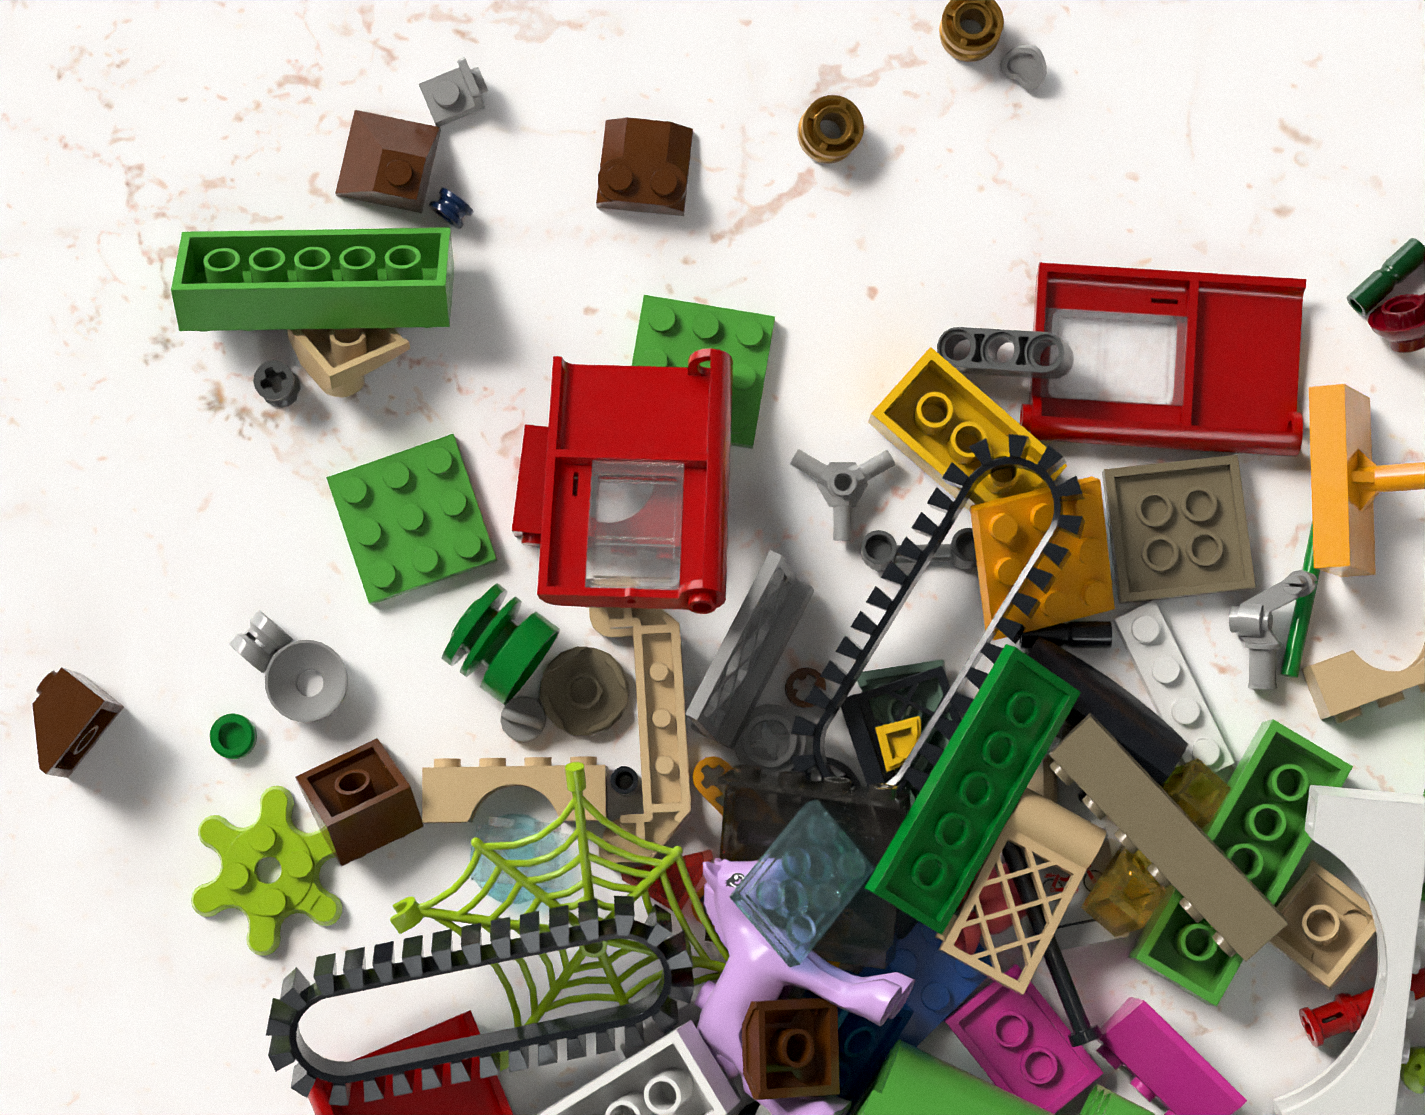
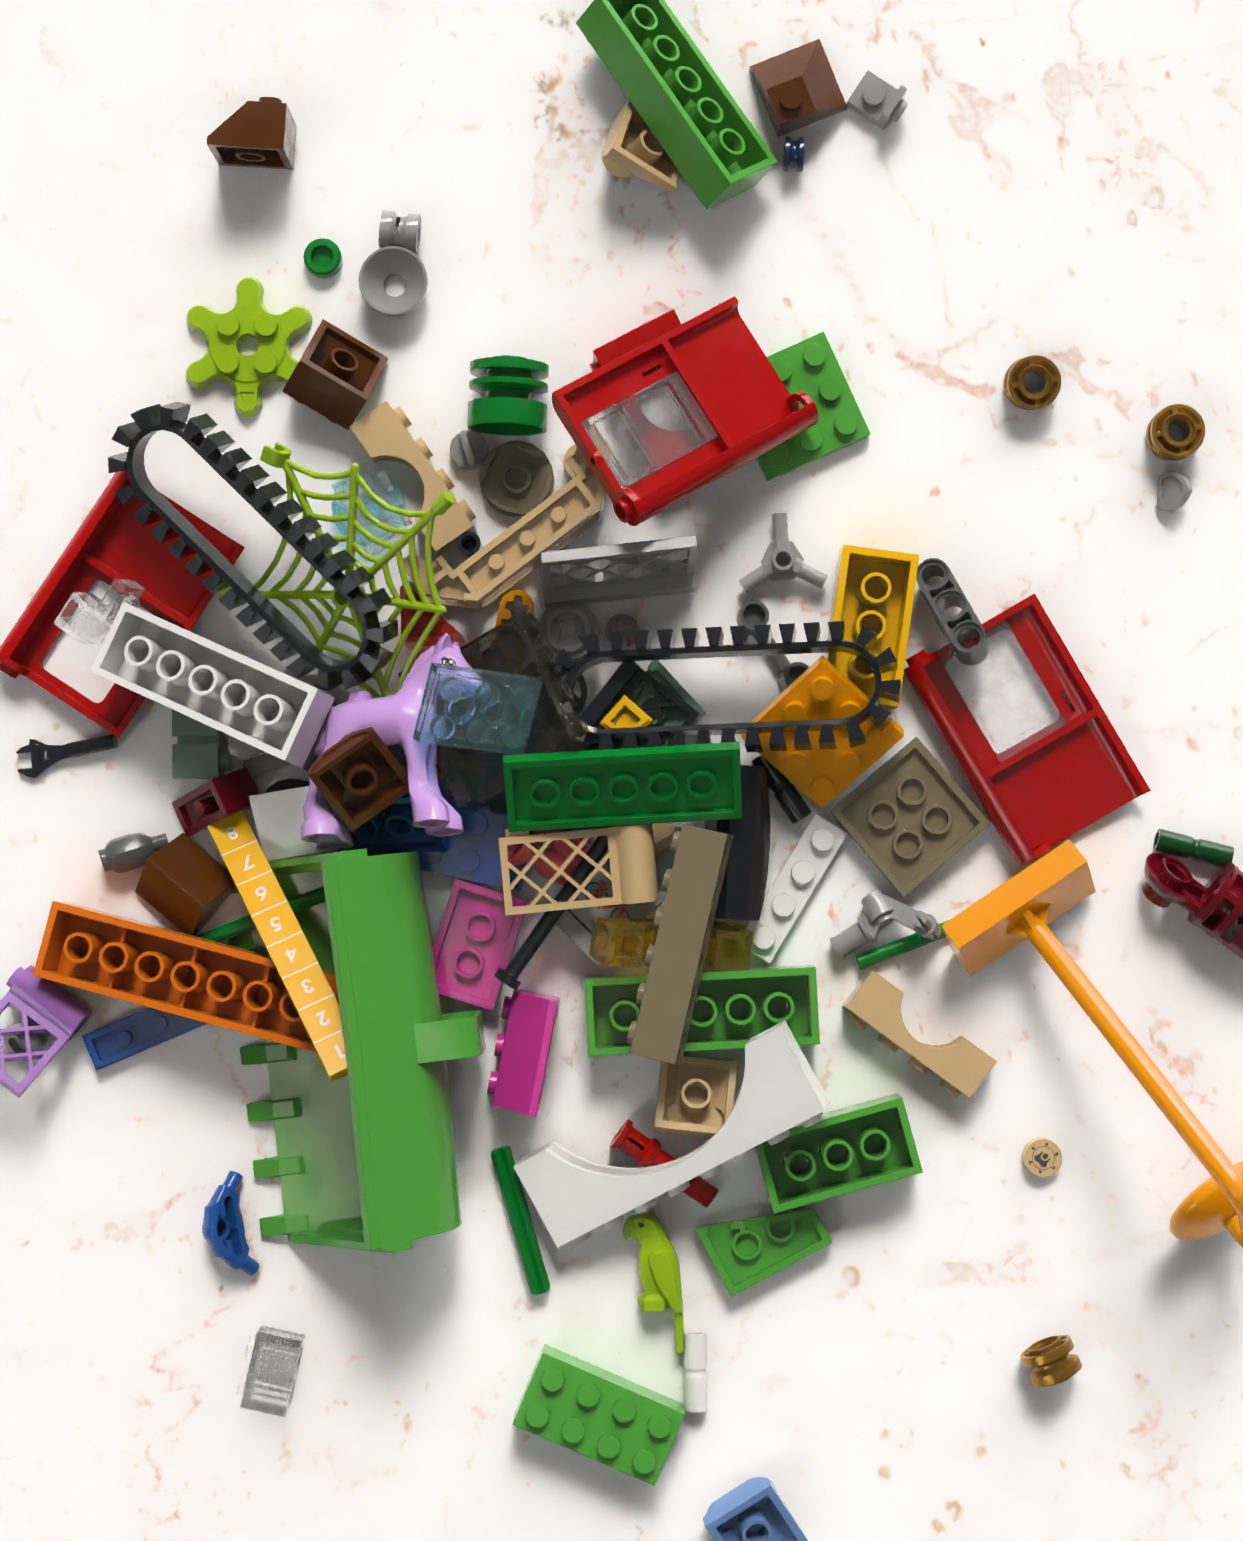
camera: 55 degrees right, 5 degrees up
(263, 383) = (583, 107): dark grey bush -> none
(411, 519) = (556, 277): bright green plate -> none
(644, 166) = (916, 270): reddish brown slope -> none

